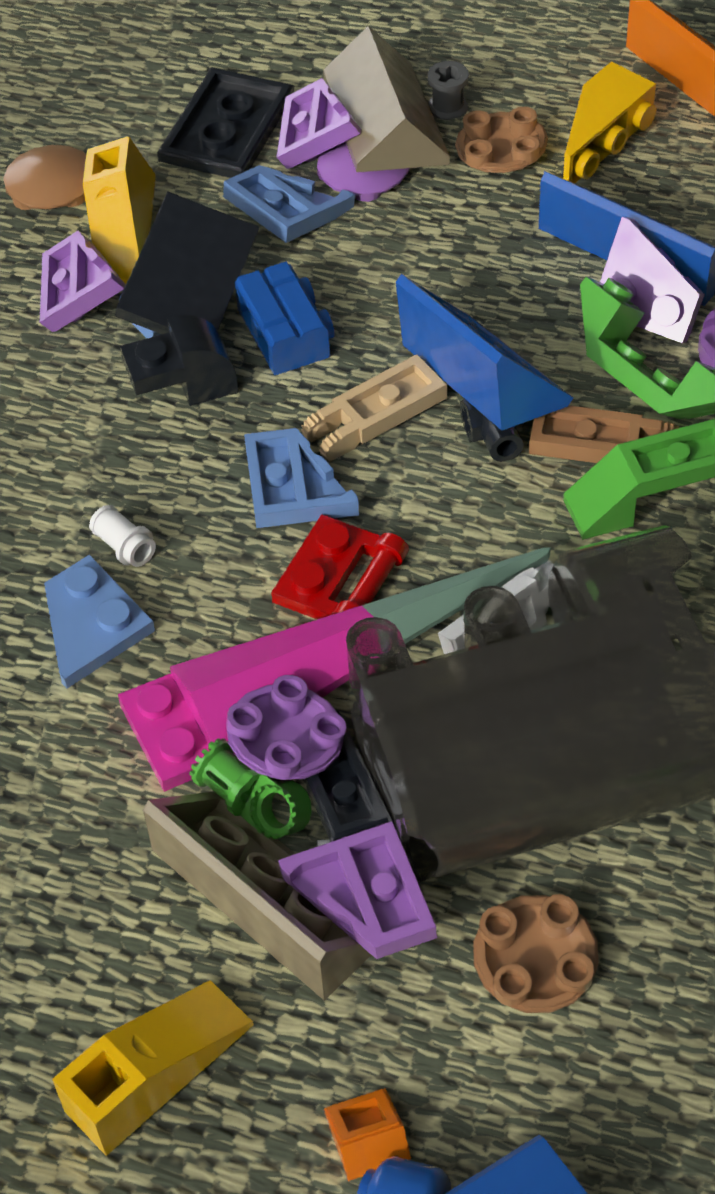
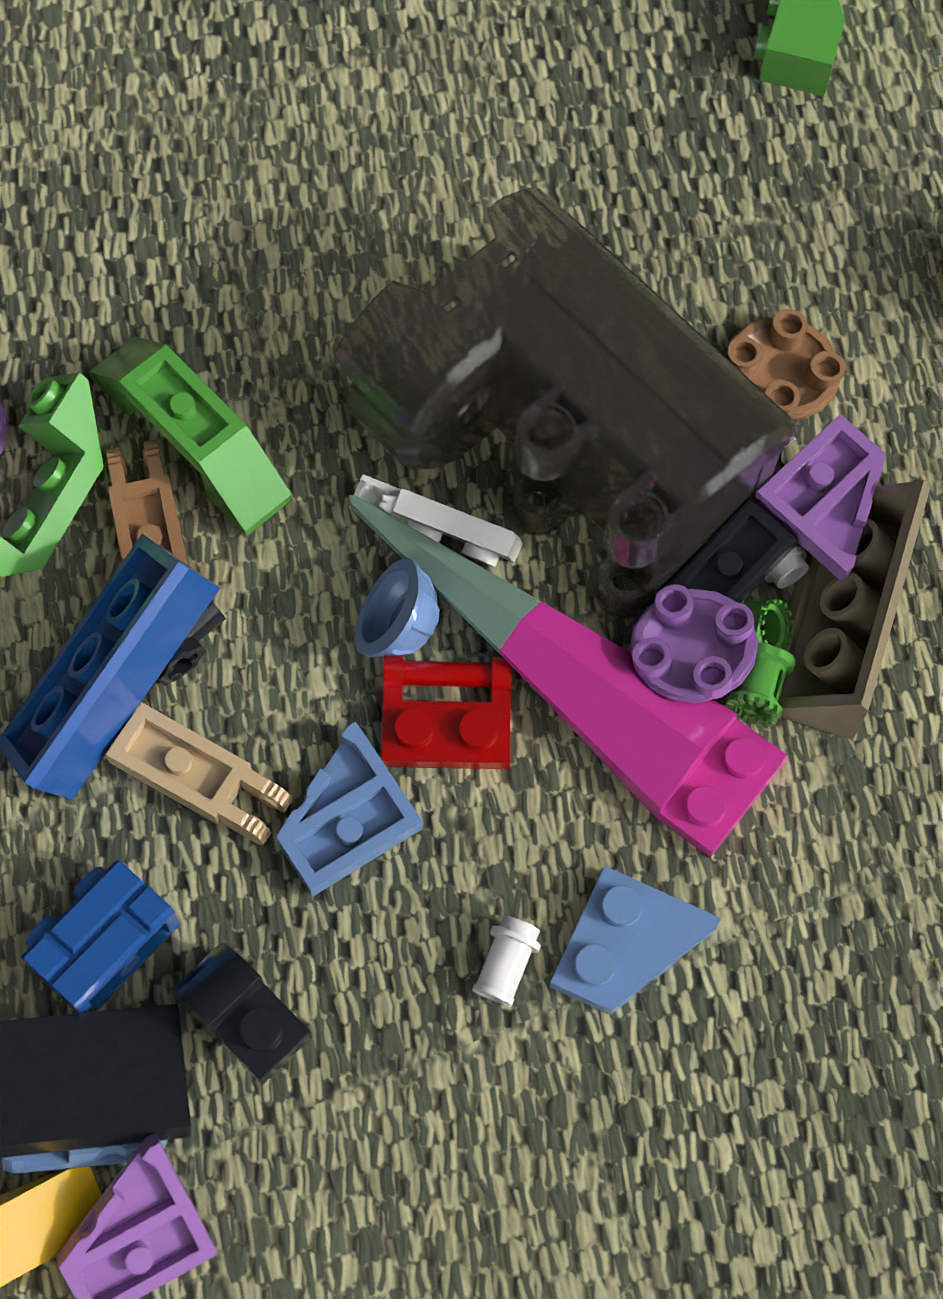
camera: 120 degrees left, 15 degrees up
(424, 557) = (397, 612): none -> medium blue piece

